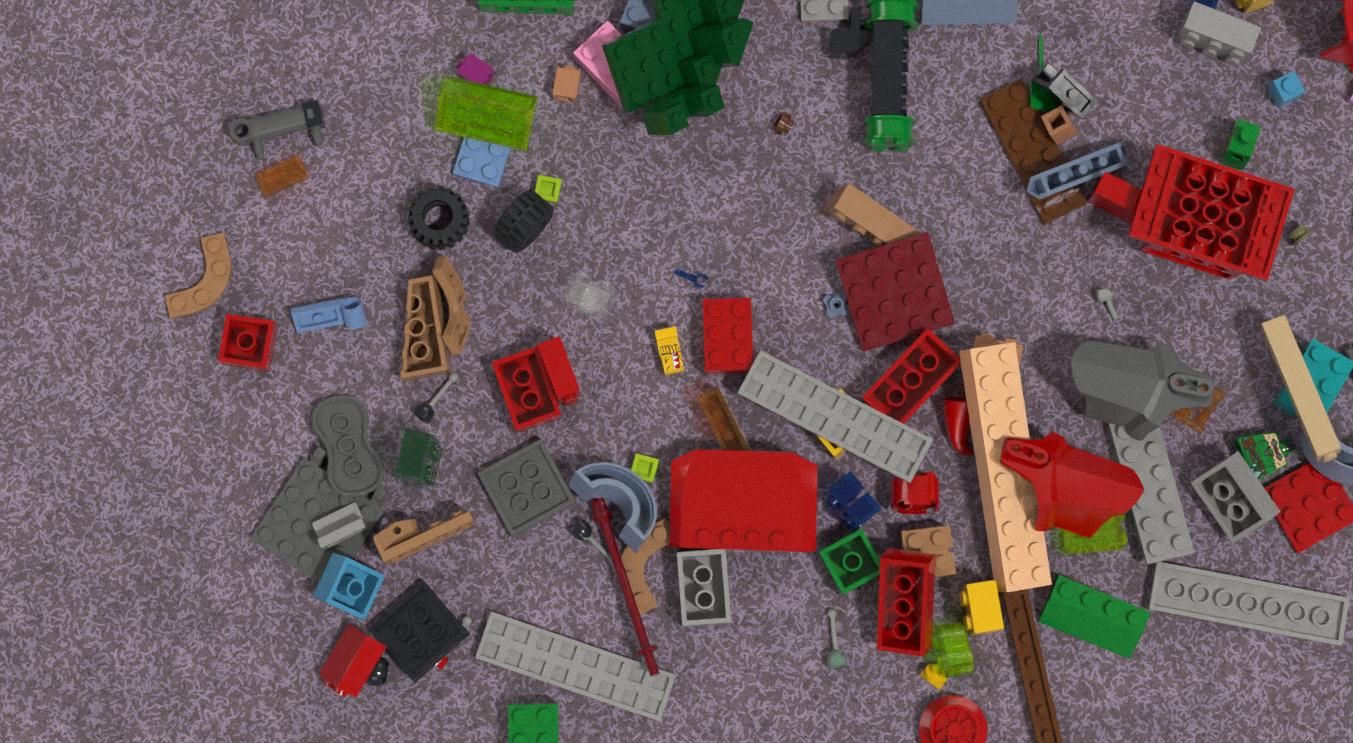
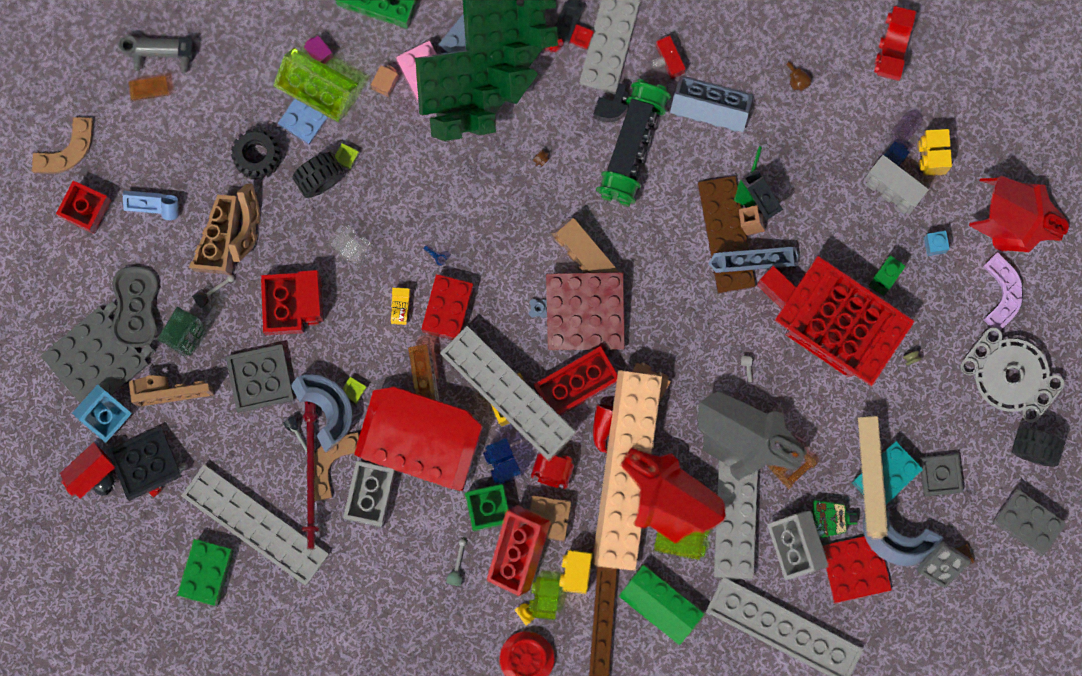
camera: 20 degrees right, 0 degrees up
(339, 526) = (109, 366): light grey panel -> none

